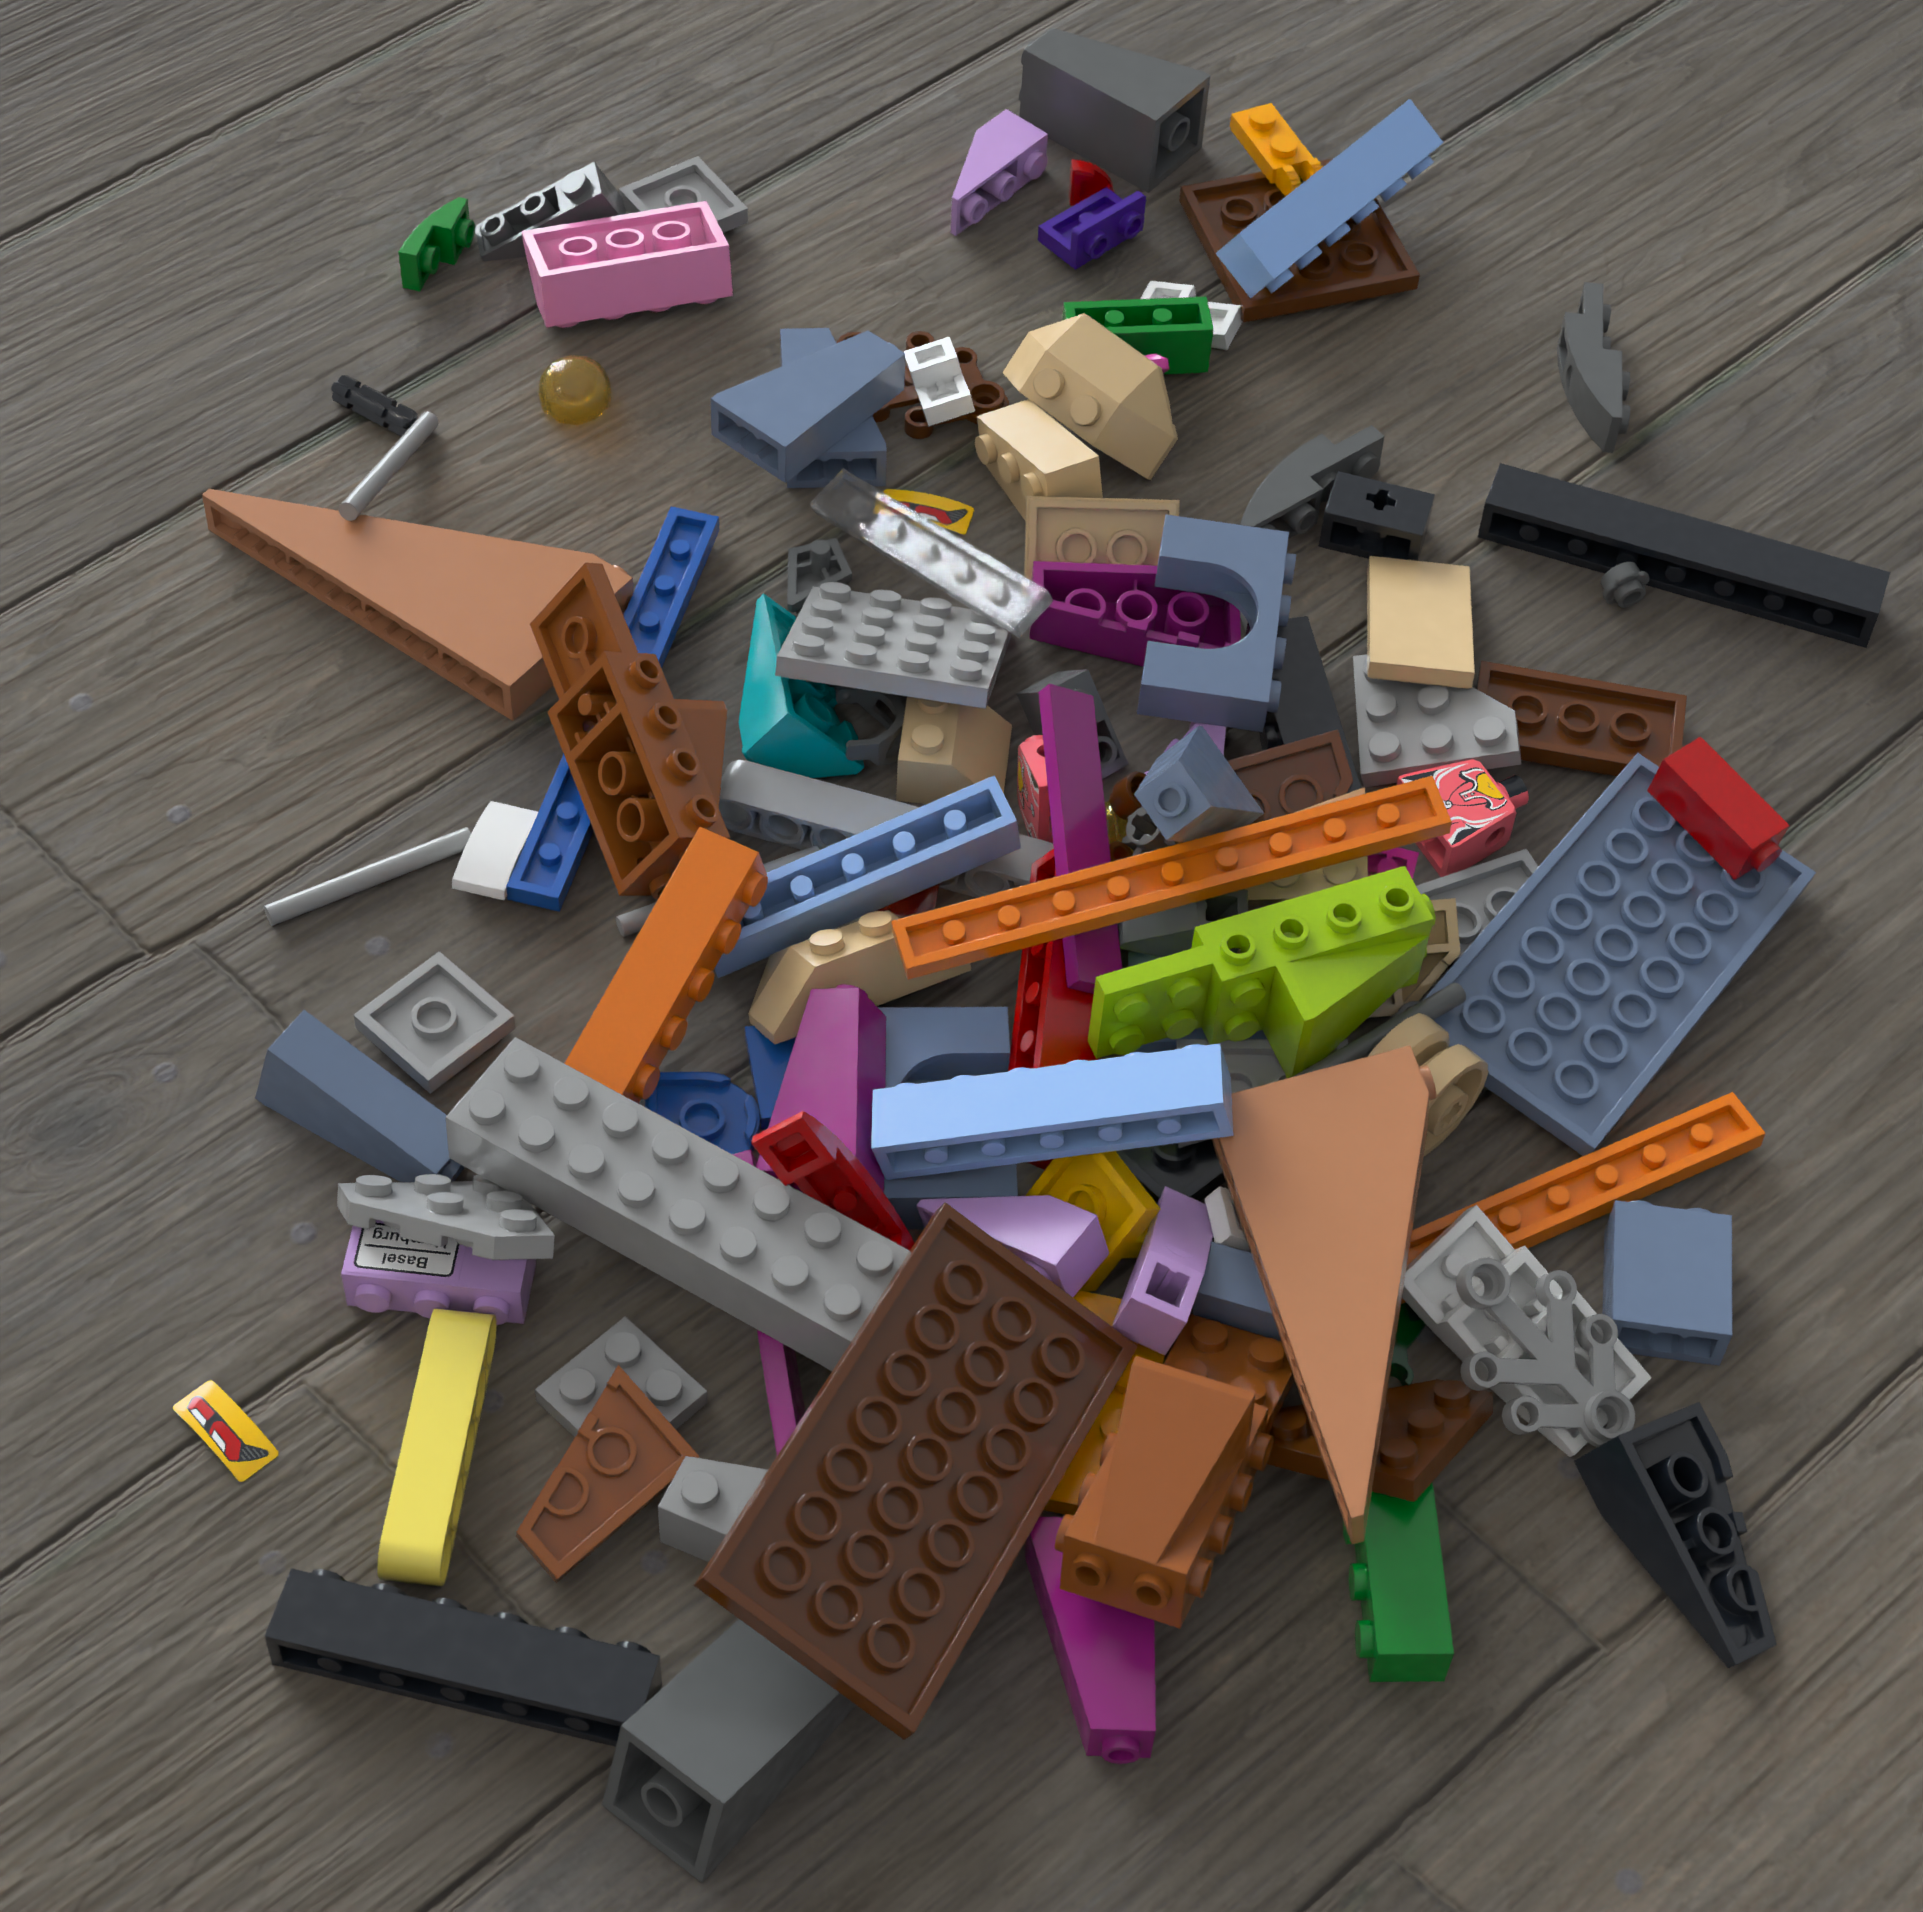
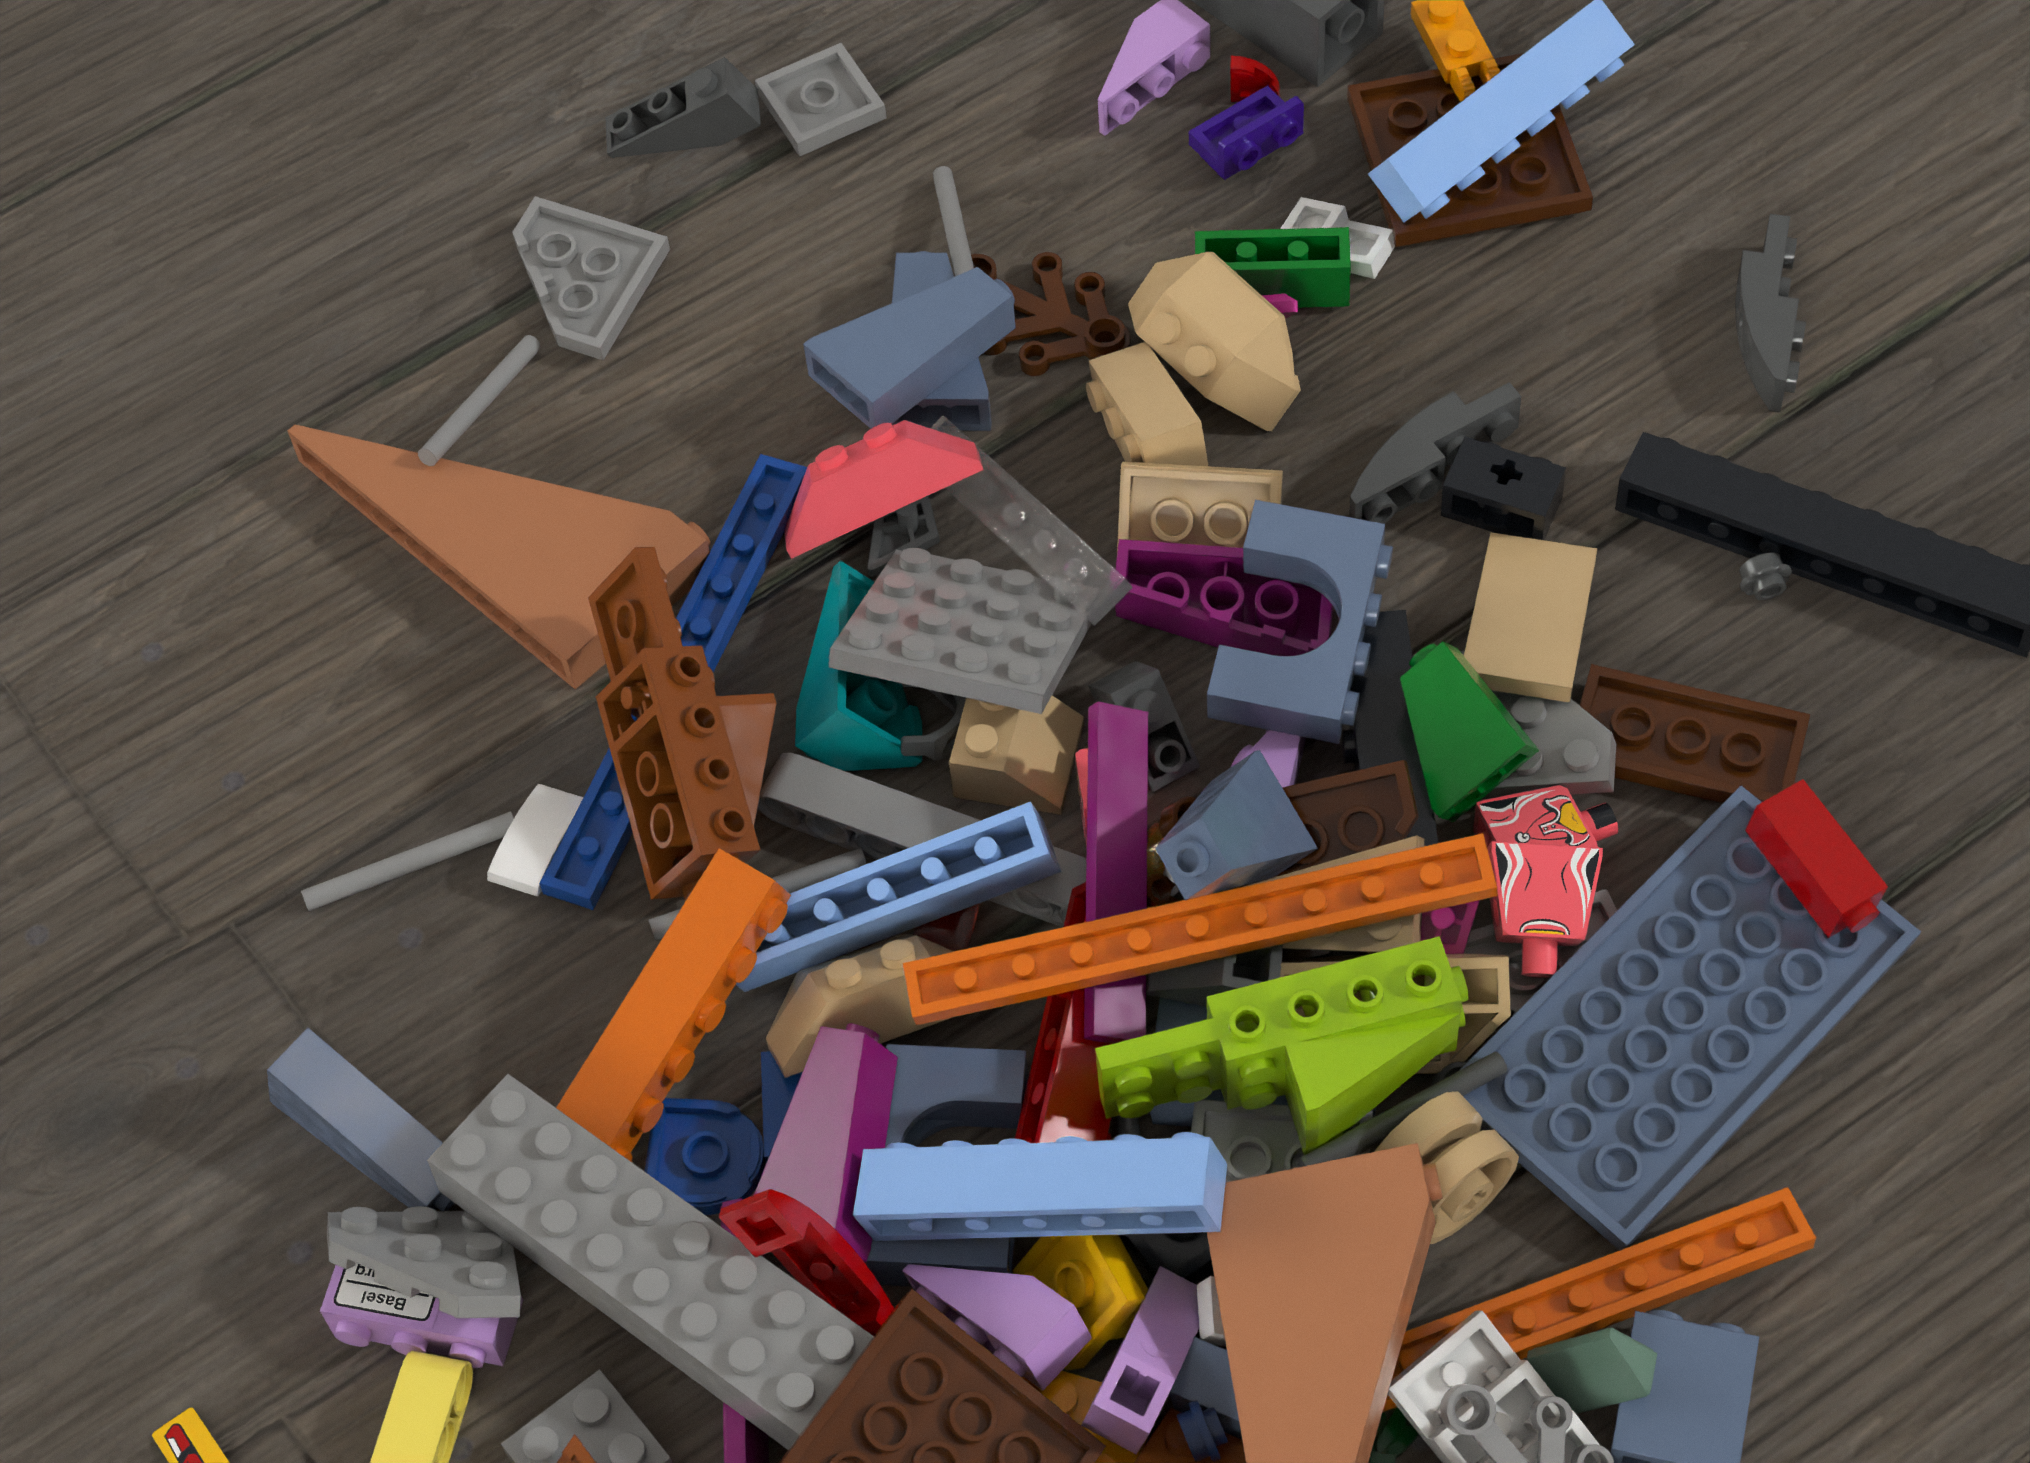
camera: 15 degrees right, 5 degrees up
(373, 405) = (476, 325): black axle -> none
(434, 241) = (561, 135): green slope -> none
(434, 1022) = (452, 1030): light grey plate -> none
(475, 355) = (586, 271): none -> light grey plate
(574, 390) = (681, 313): clear yellow hair -> none
(628, 264) = (750, 170): bright pink slope -> none
(785, 521) = (873, 479): none -> coral wedge
(825, 301) = (952, 220): none -> light grey bar
(938, 509) = (1032, 460): yellow sticker -> none
(939, 381) = (1056, 315): white slope -> none
(1232, 1323) = (1202, 1432): none -> dark blue plate
(1379, 711) = (1460, 730): none -> green slope
(1480, 854) = (1543, 899): none -> coral torso
(1592, 1247) = (1596, 1369): none -> sand green slope

